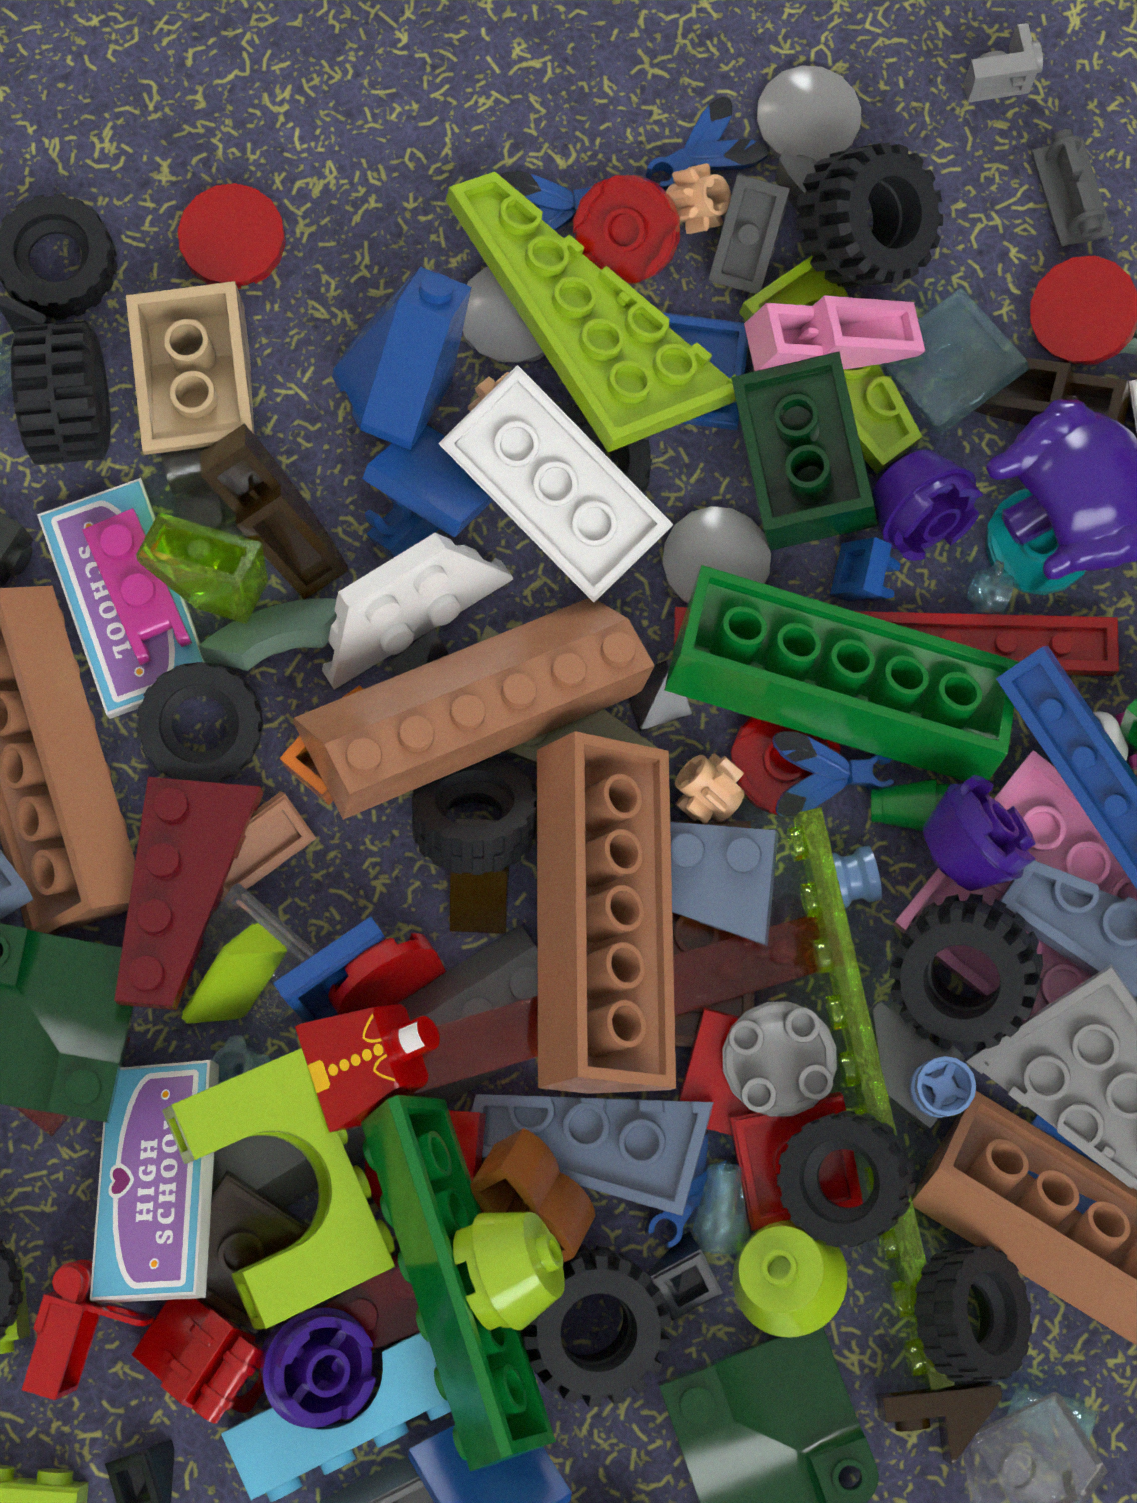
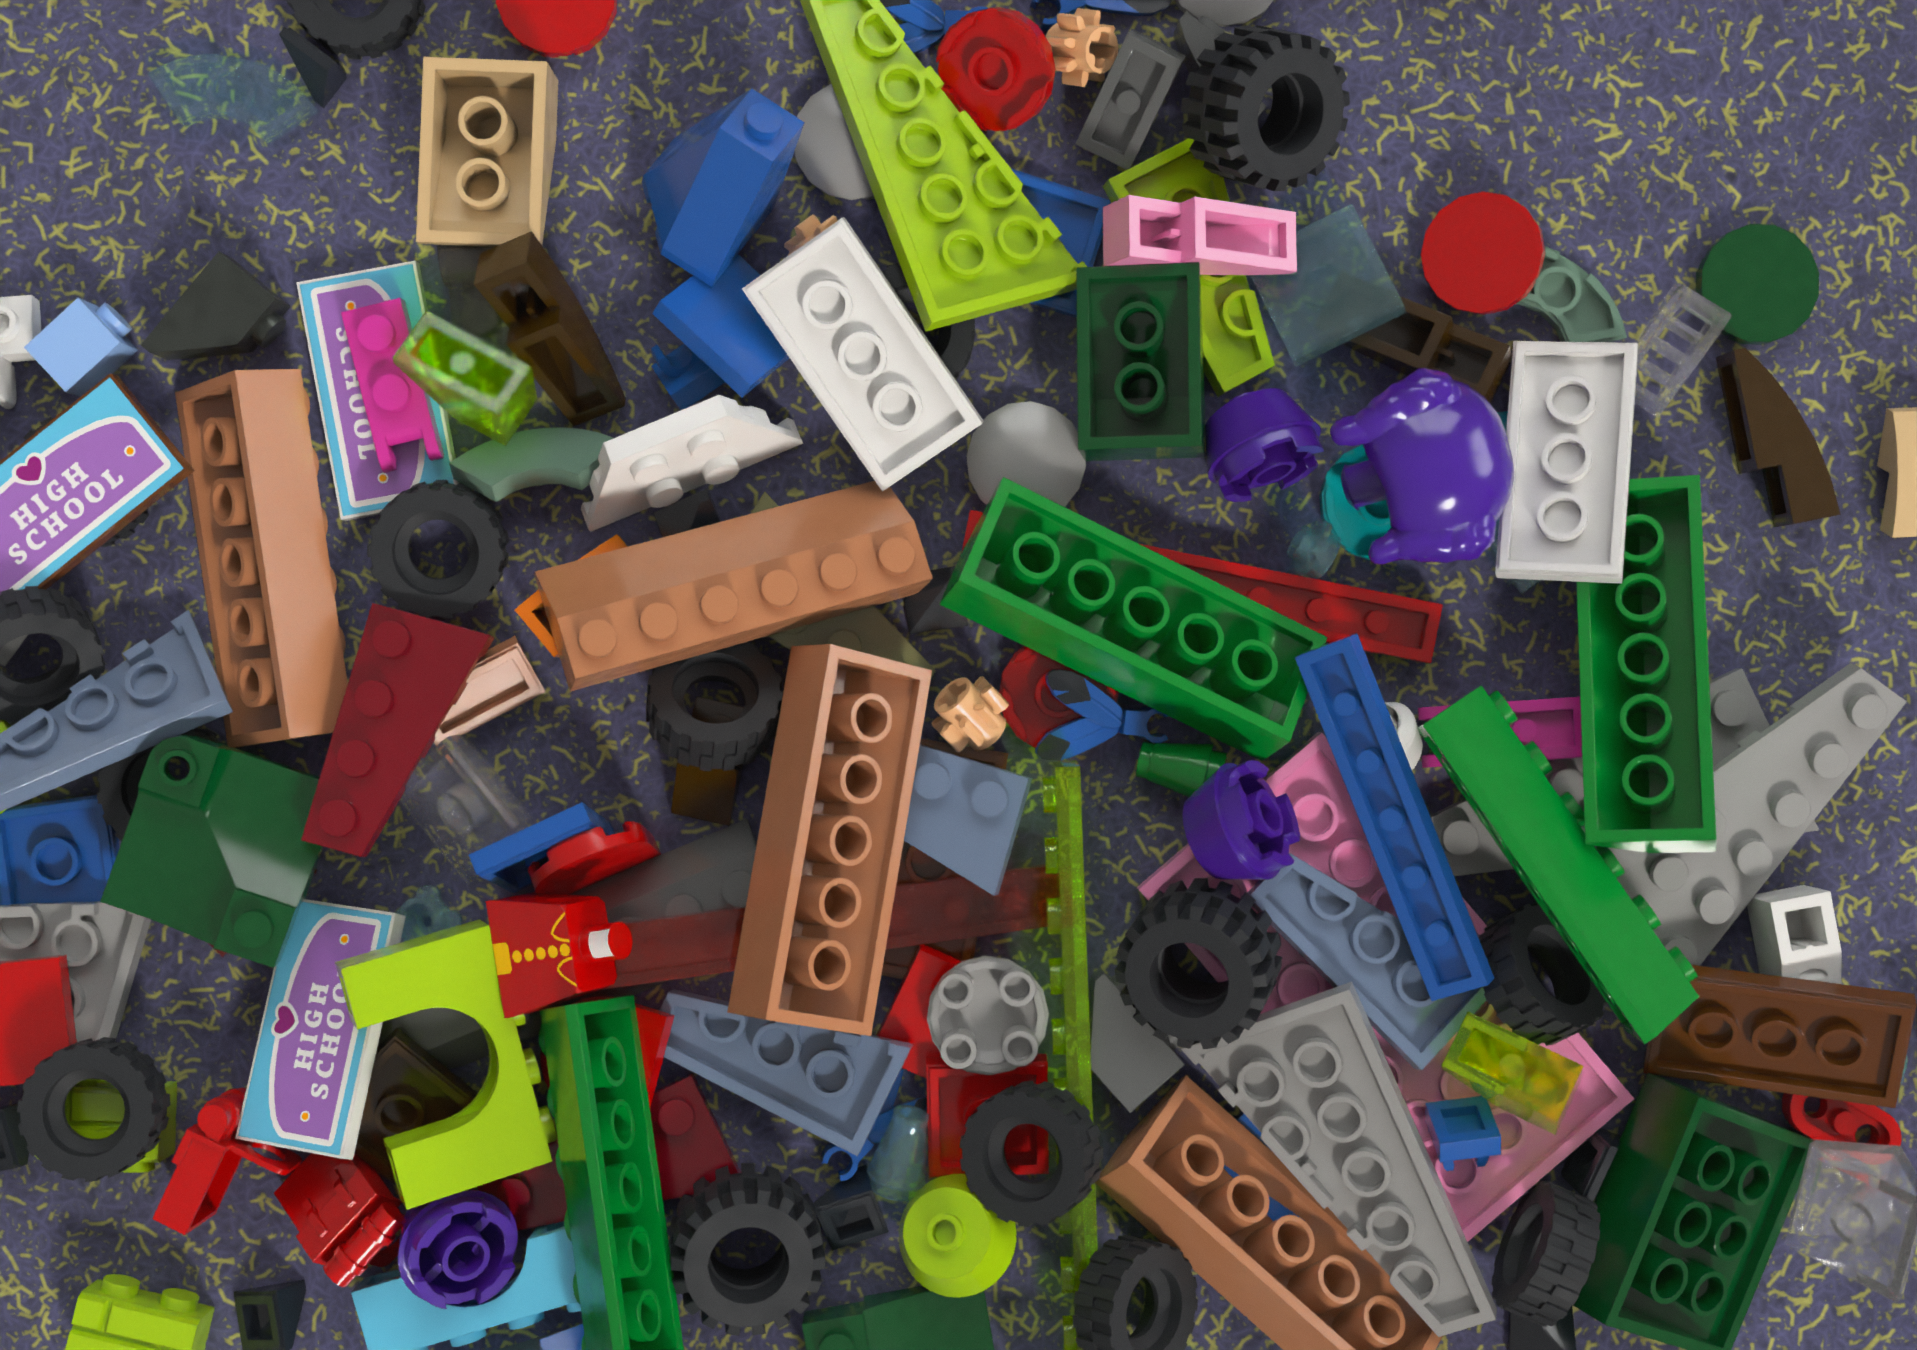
camera: 10 degrees right, 10 degrees up
(60, 392) = (336, 155): black tyre -> none
(236, 977) = (435, 831): lime slope -> none
(511, 1266) = (664, 1195): lime cone -> none
(526, 1178) = (705, 1119): dark orange brick -> none
(858, 876) = (1106, 833): medium blue wheel -> none
(863, 569) = (1180, 503): blue tile -> none
(952, 1087) = (1156, 1086): medium blue wheel -> none
(1071, 190) = (1499, 108): dark grey hinge -> none

